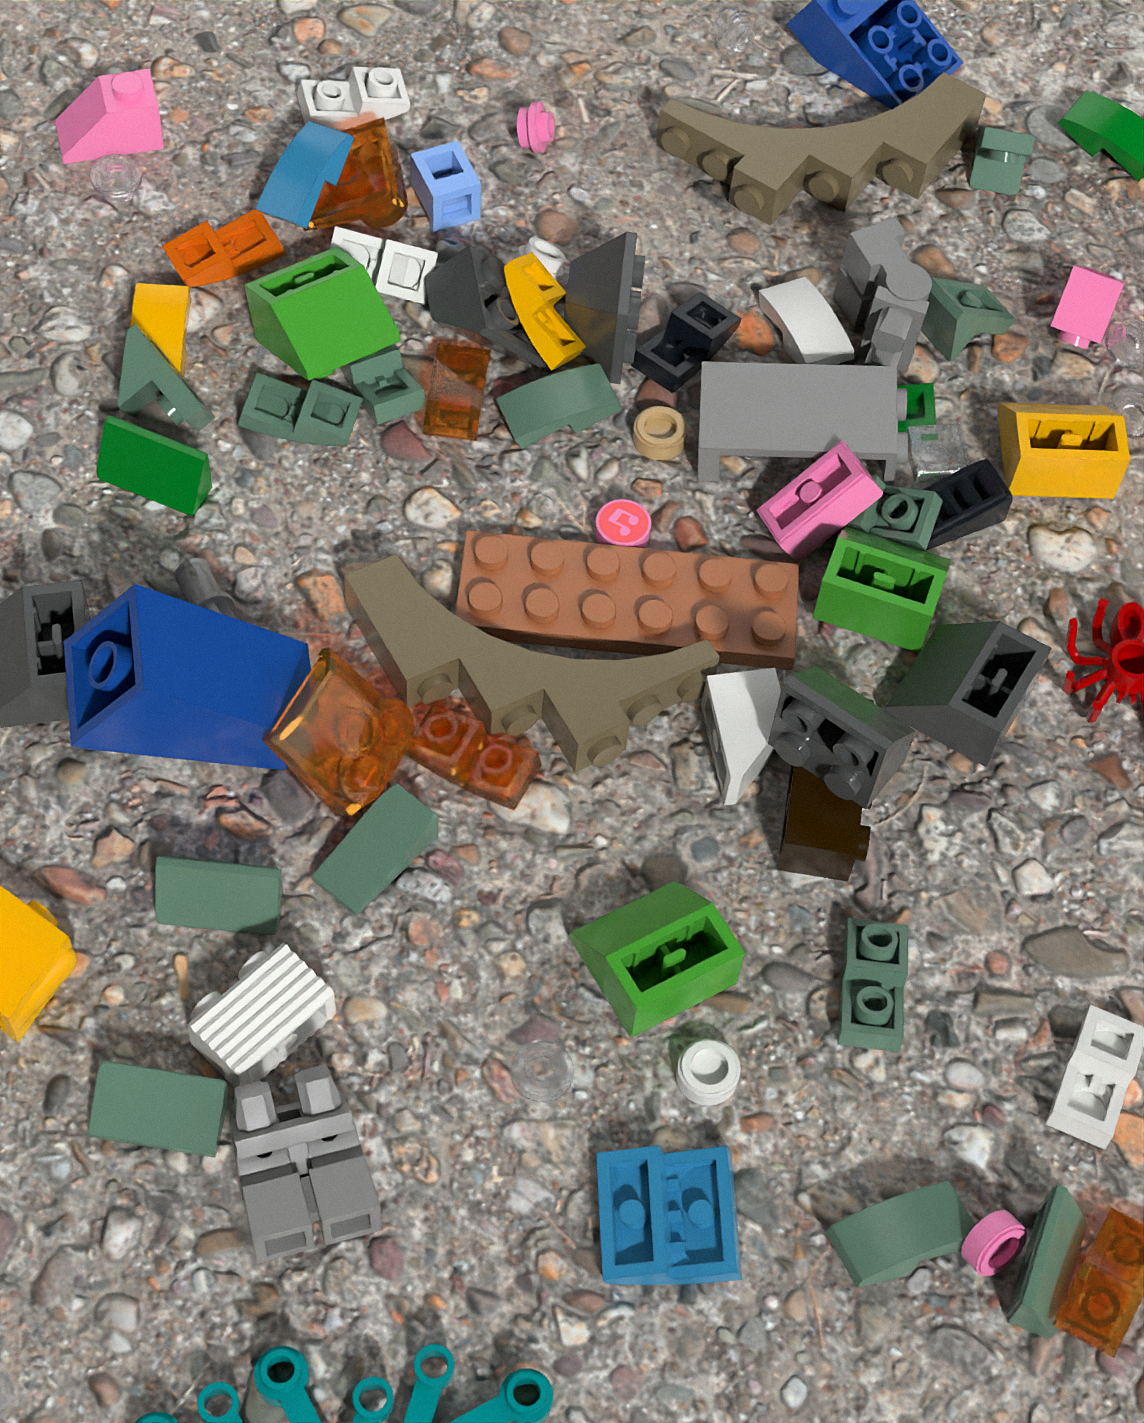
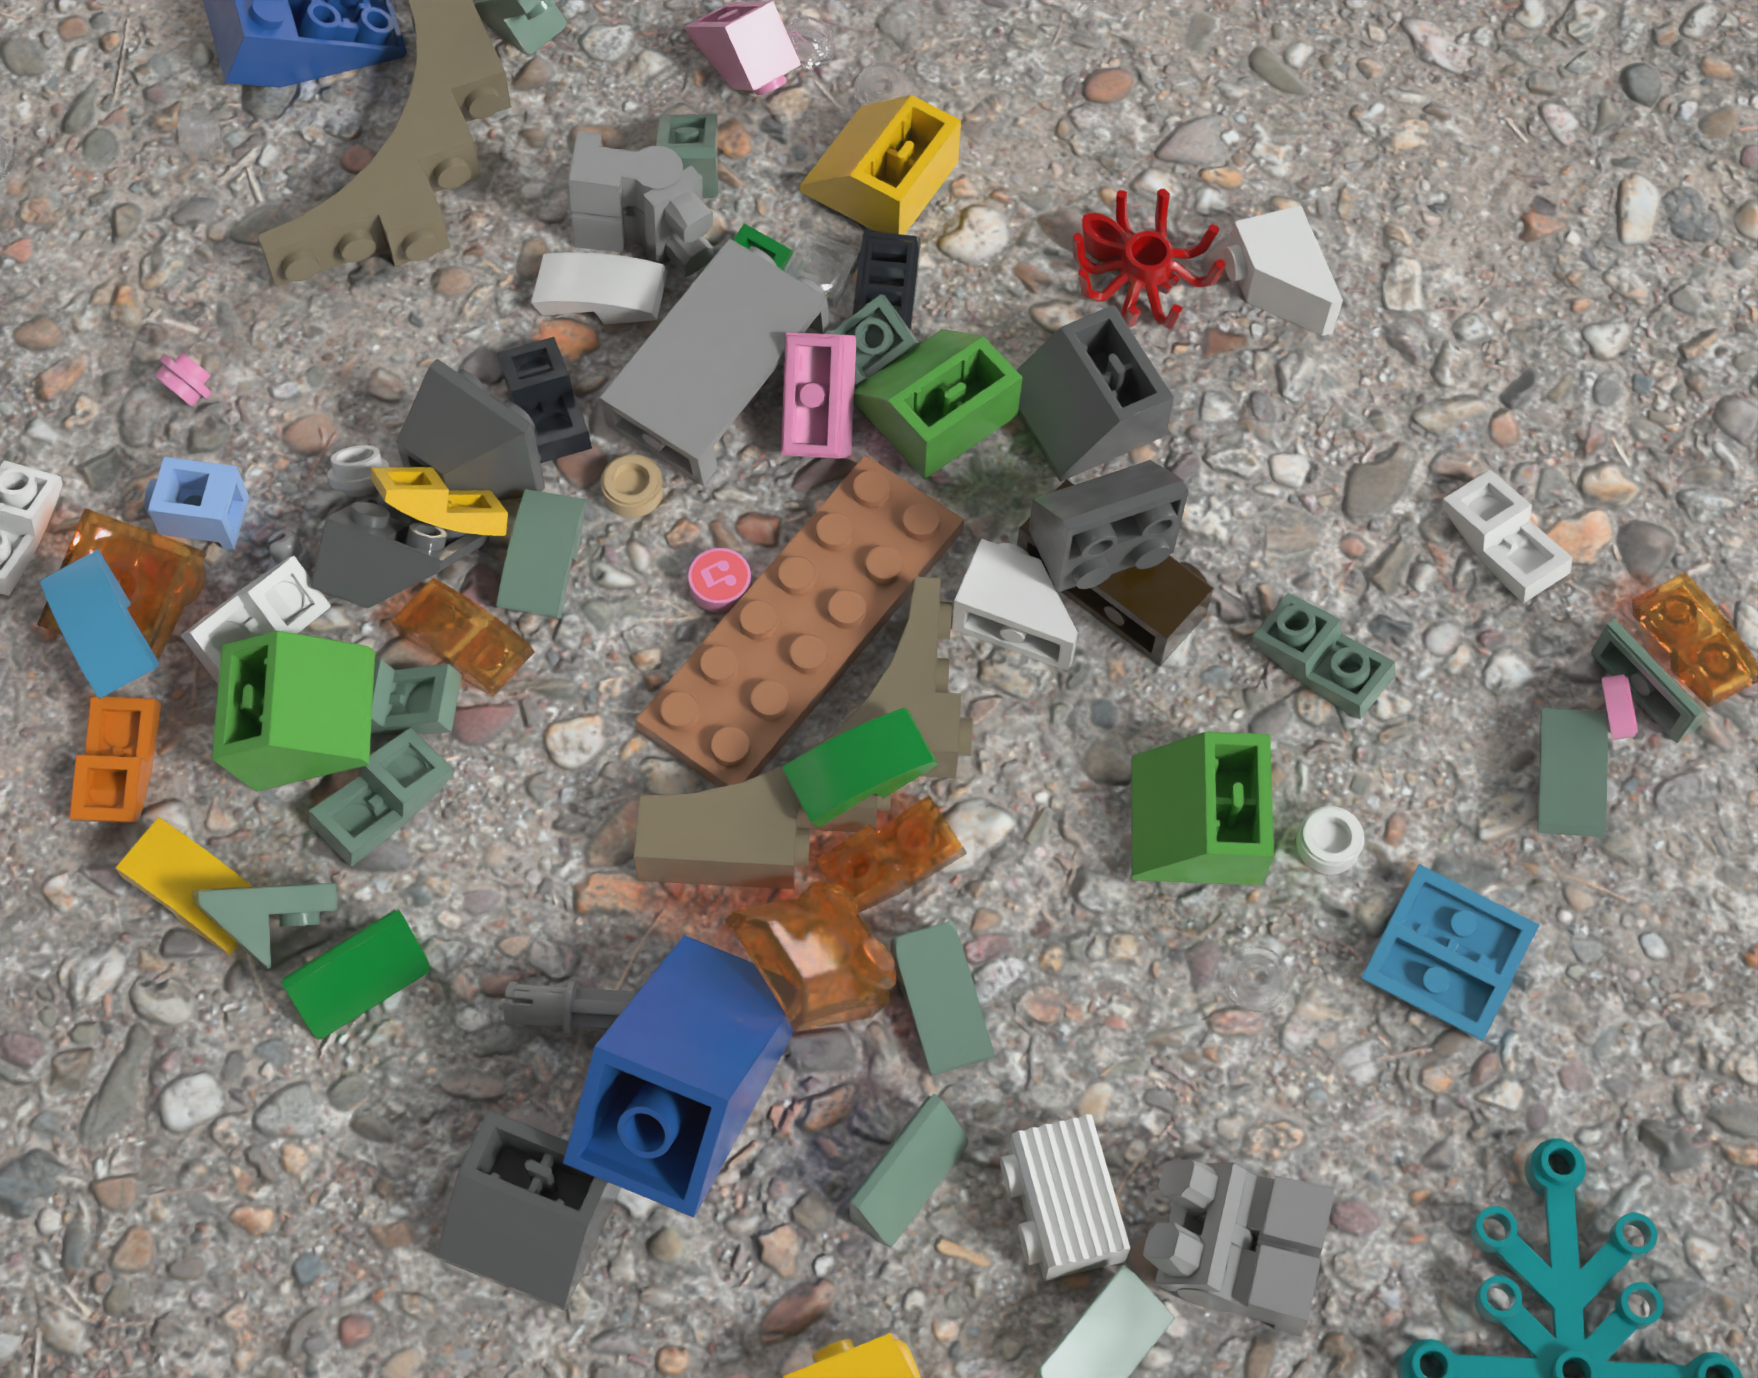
camera: 55 degrees left, 5 degrees up
(517, 675) = (858, 763): none -> green slope

